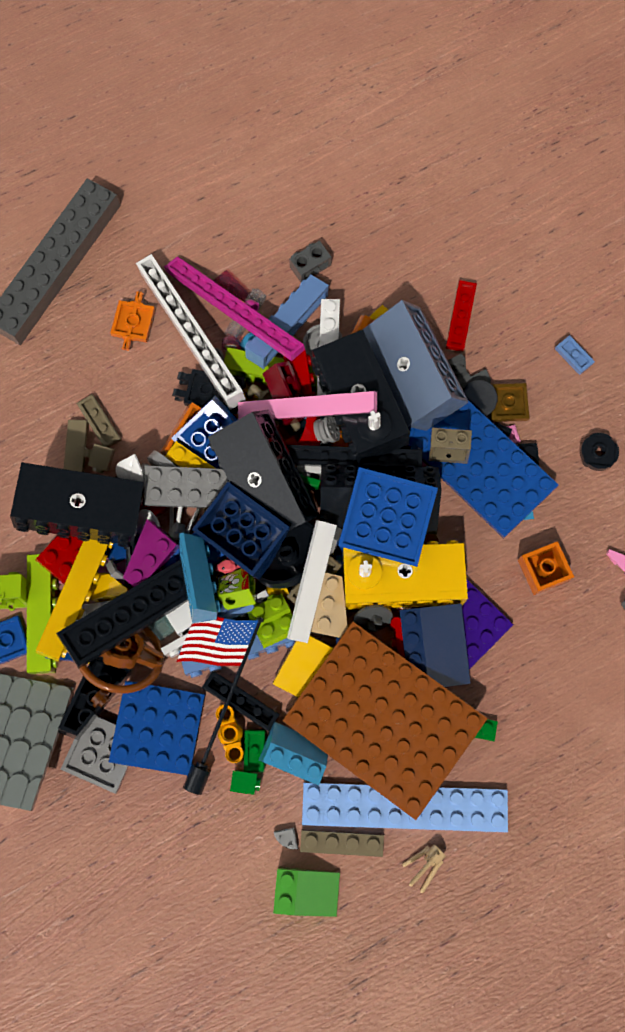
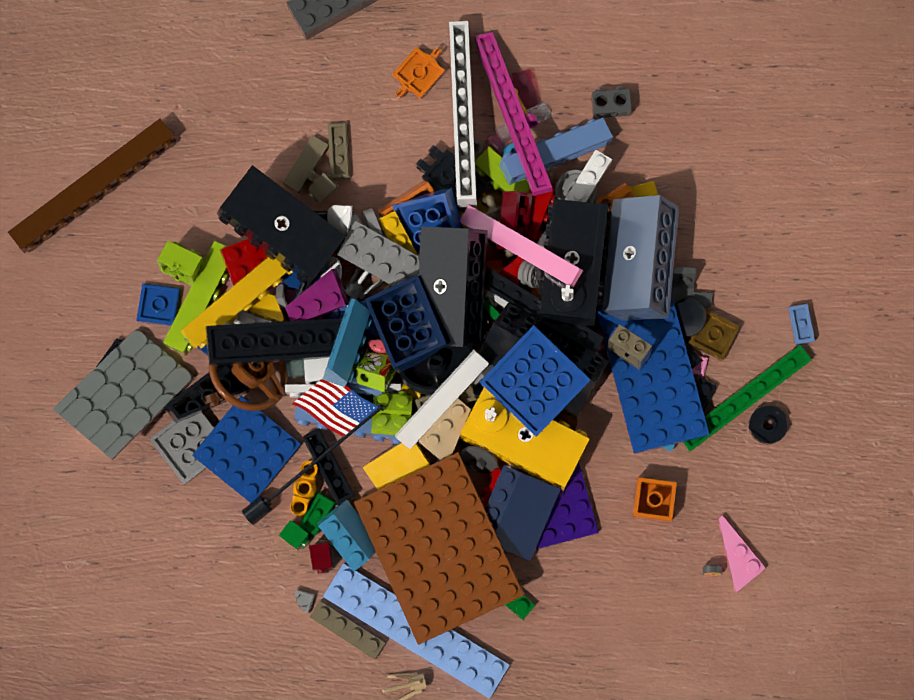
camera: 30 degrees right, 5 degrees up
(281, 790) = (321, 558): none -> dark red slope
(306, 892) = (296, 651): bright green slope -> none
(461, 316) = (719, 230): red plate -> none
(570, 432) = (752, 393): none -> green plate

